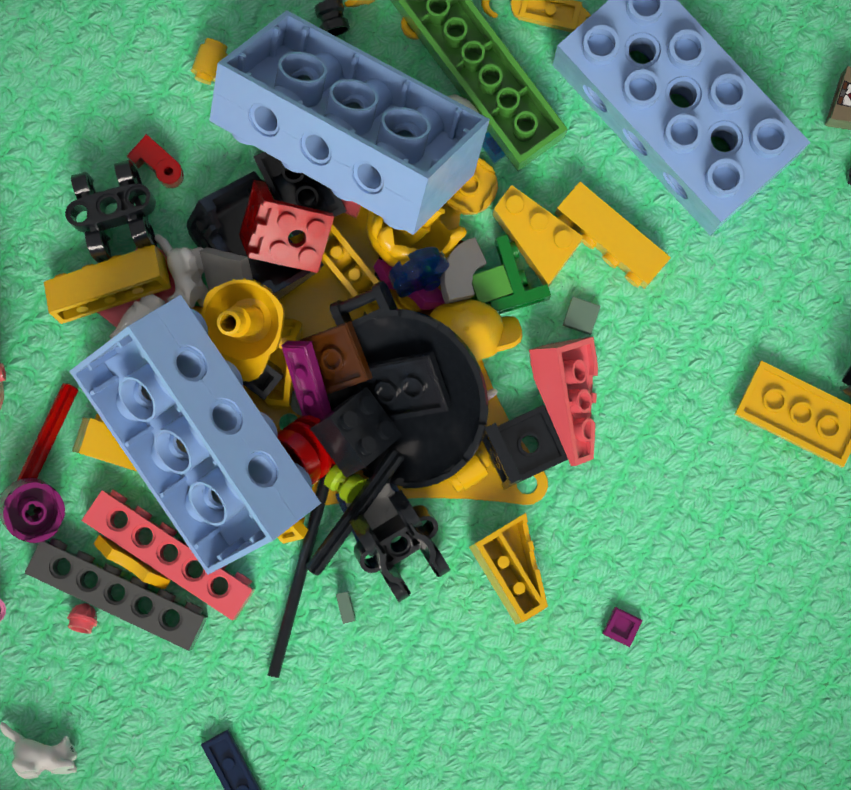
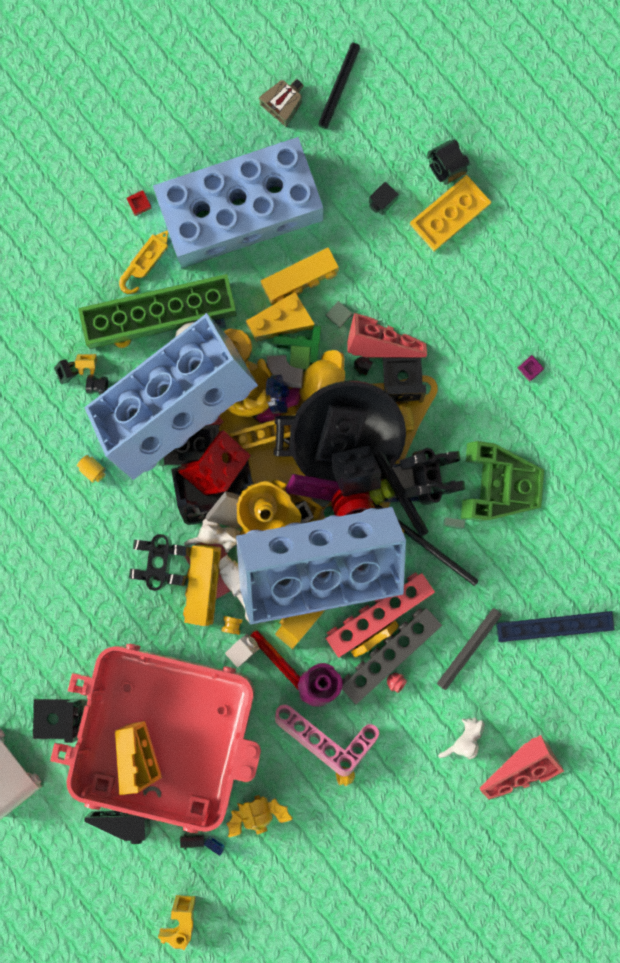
camera: 65 degrees left, 0 degrees up
(38, 380) = (242, 650): none -> white brick
(68, 350) = (231, 625): none -> yellow wheel
(157, 159) = (144, 522): red leg -> none
(173, 705) = (469, 649): none -> dark grey axle
(339, 357) = (307, 462): reddish brown tile -> none
(433, 663) = (507, 483): none -> bright green wedge
(512, 569) = (472, 416): yellow wedge -> none
(521, 380) = (362, 365): none -> black plate
(778, 307) = (383, 198): none -> black brick

